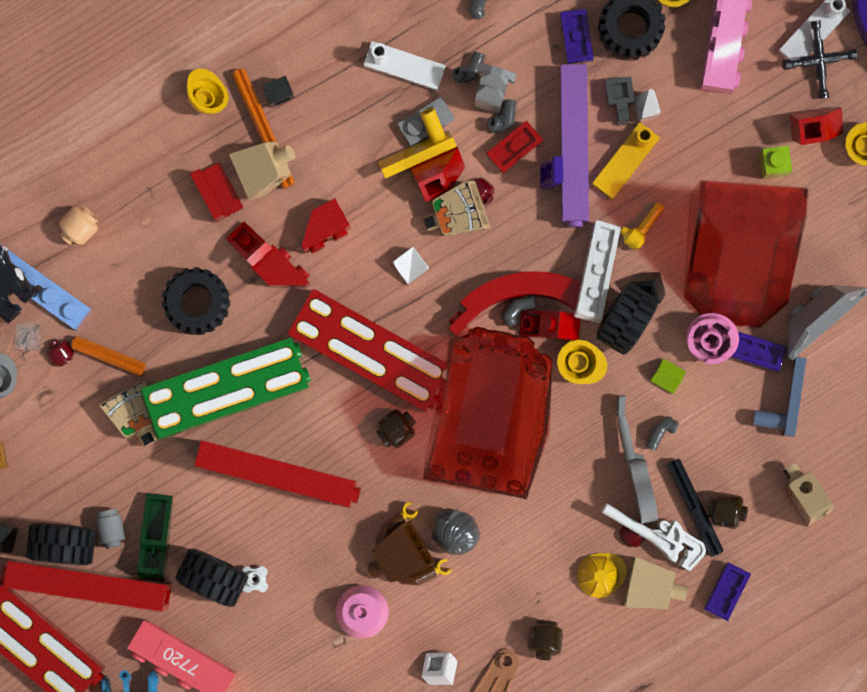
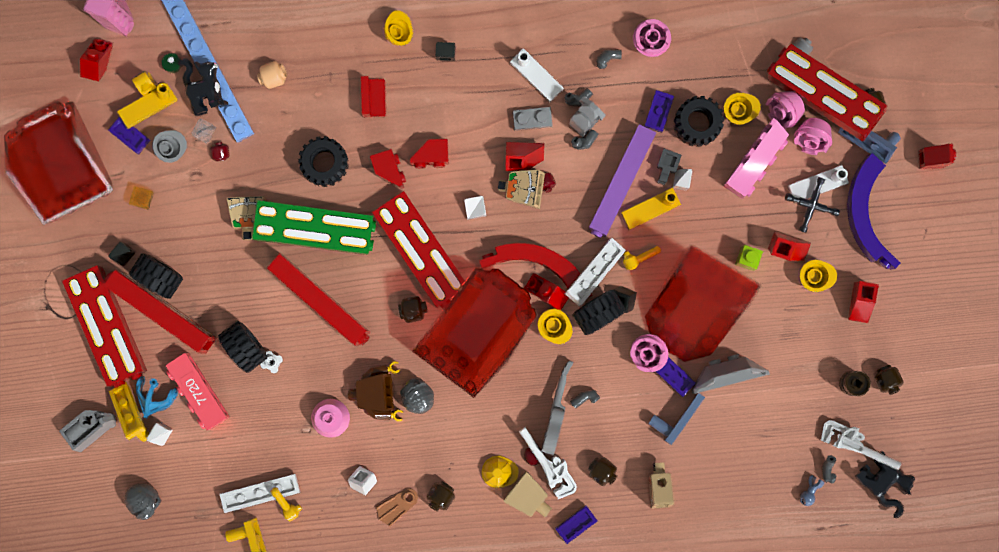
camera: 30 degrees right, 0 degrees up
(108, 355) = (250, 170): orange axle -> none
(109, 528) = (194, 282): light grey brick -> none
(155, 537) = (220, 302): dark green slope -> none
(248, 243) = (376, 141): red plate -> none
(256, 113) = (424, 67): orange axle -> none
(262, 167) = (410, 95): tan torso -> none
(437, 144) = (533, 136): yellow piece -> none
(513, 308) = (529, 268): dark grey arm -> none
(514, 147) = (582, 163): red plate -> none
(551, 173) = (597, 192): dark purple plate -> none
(668, 376) = (608, 363): lime slope -> none
(695, 508) = (582, 458): black axle -> none

